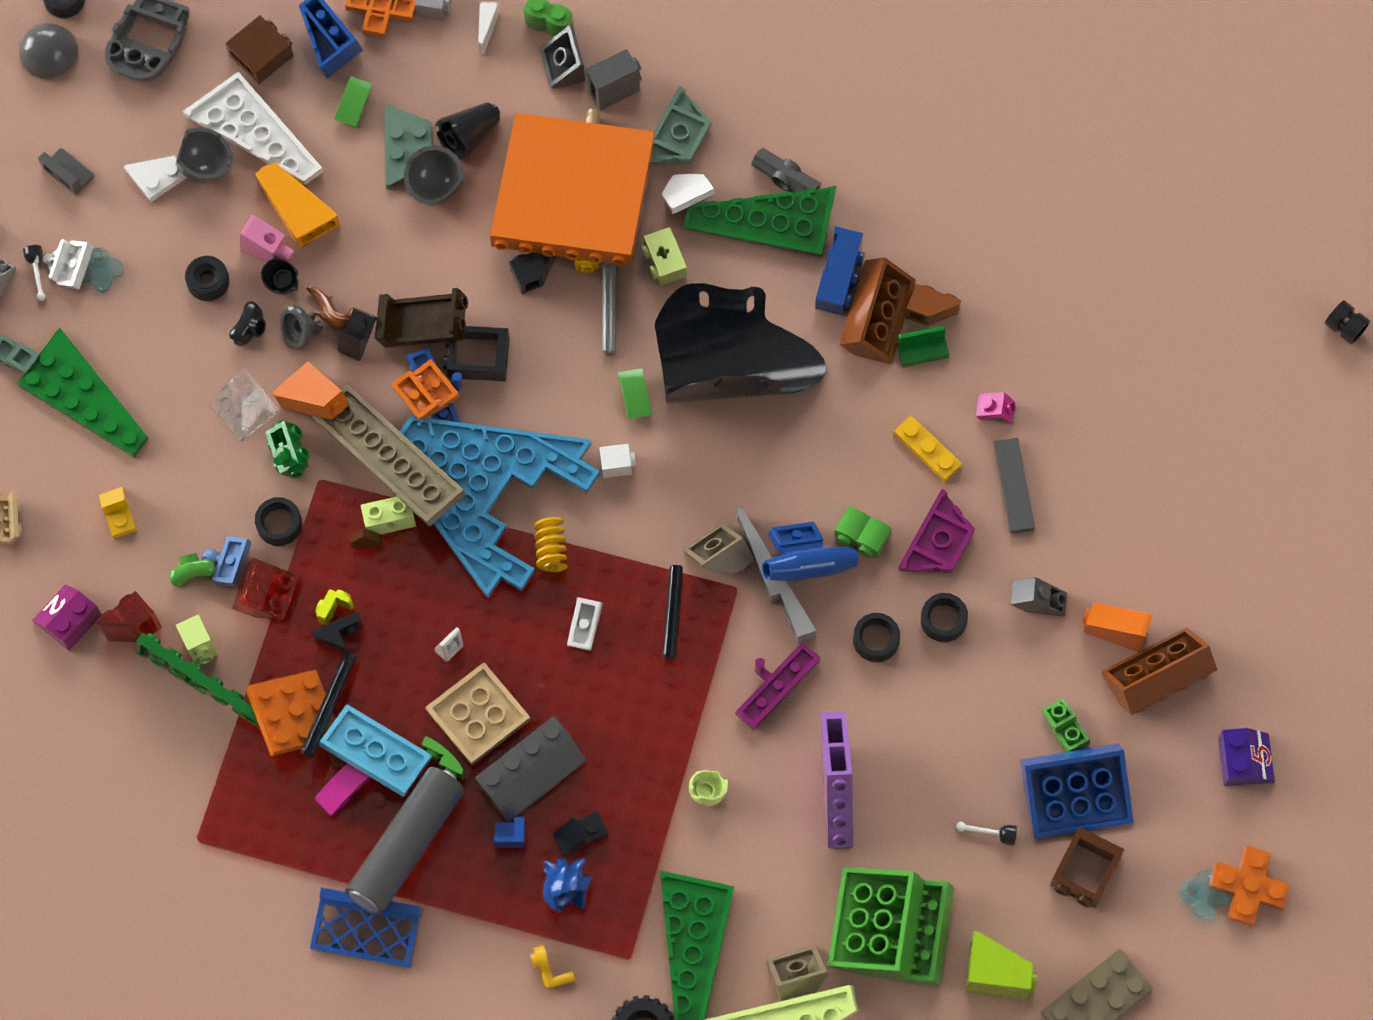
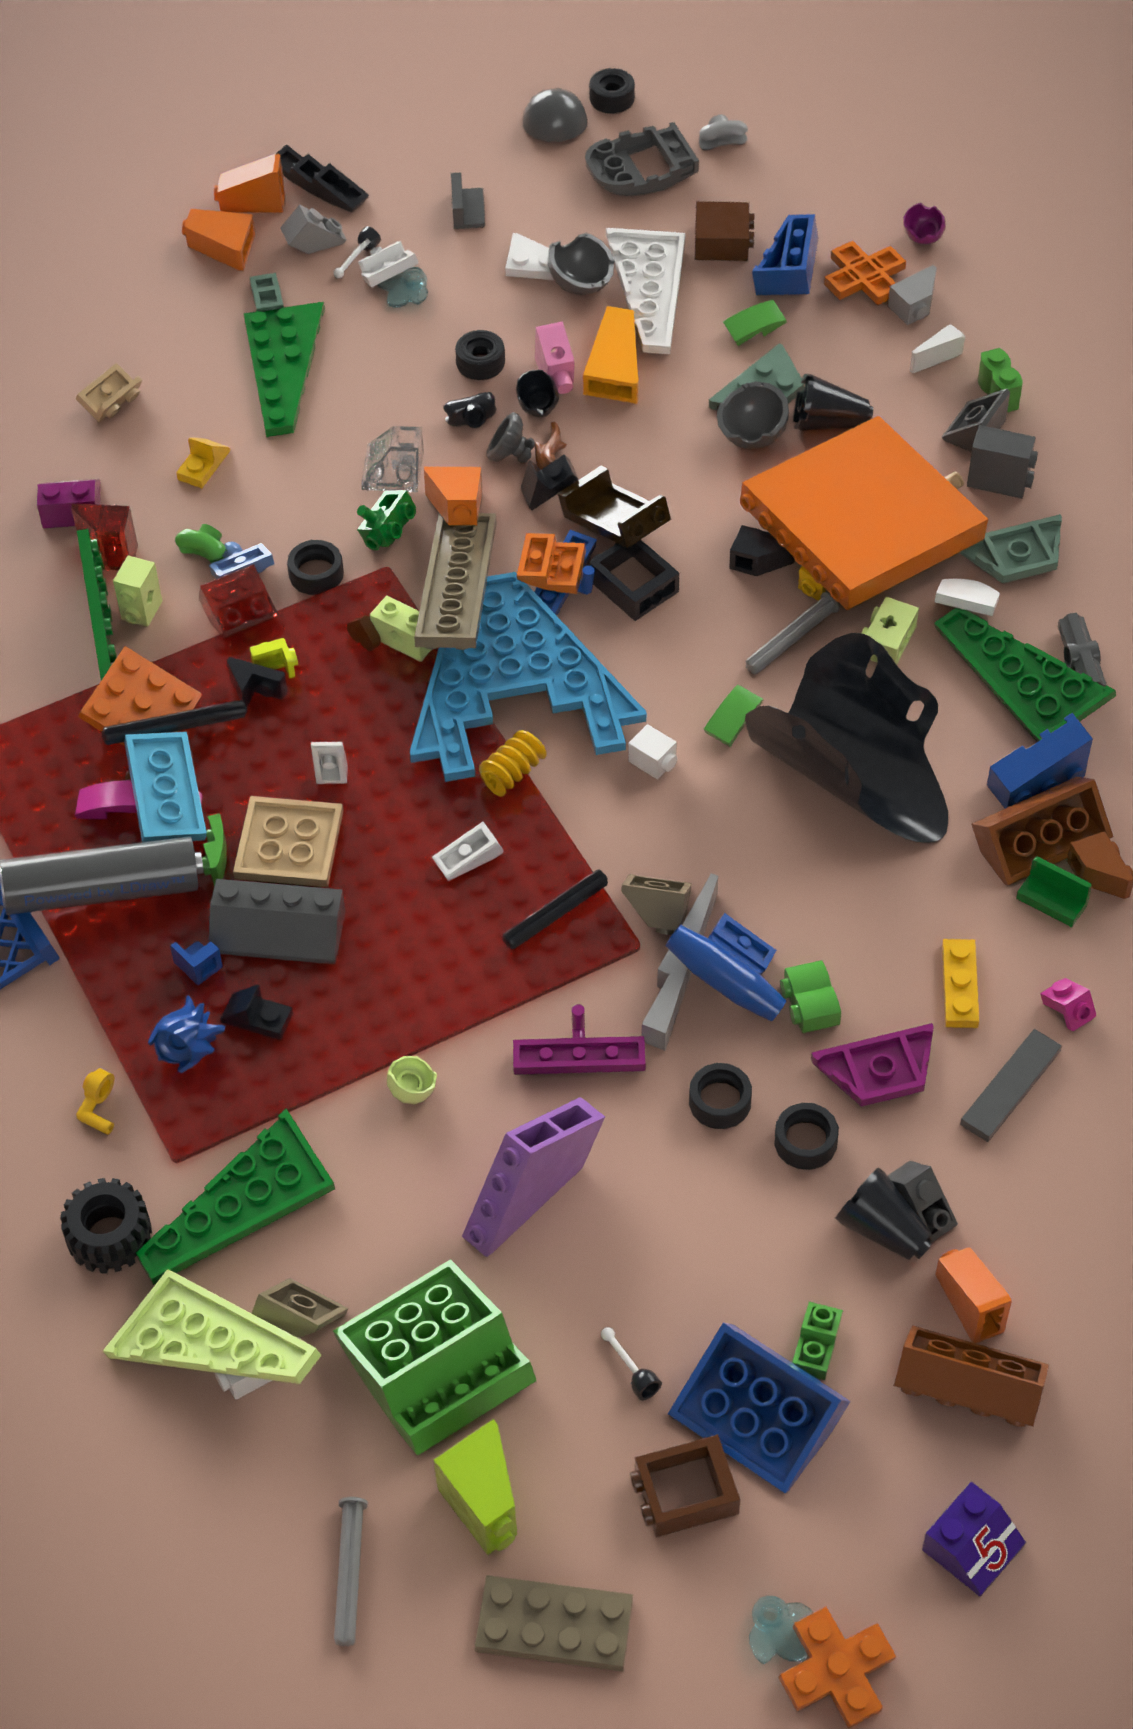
camera: 45 degrees right, 15 degrees down
(1032, 626) = (885, 1217): none -> black cone

